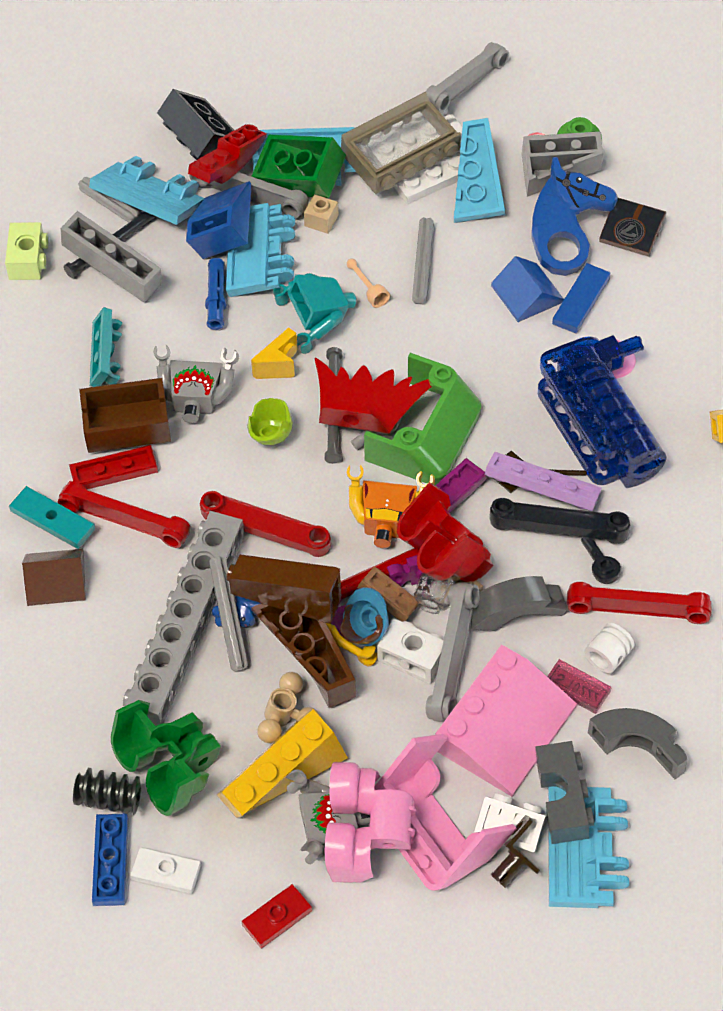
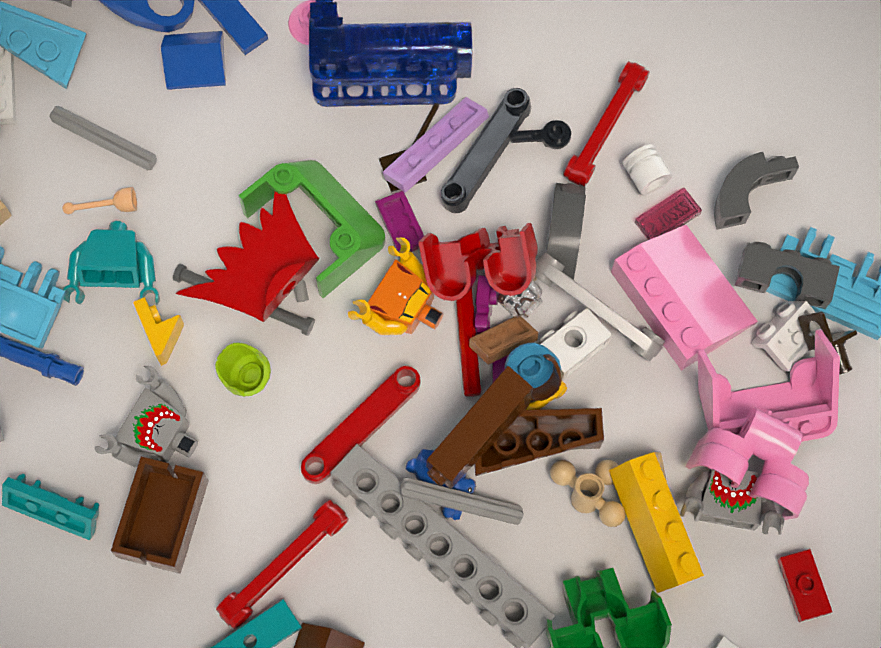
camera: 70 degrees left, 15 degrees up
(114, 467) = (213, 554): red tile -> none

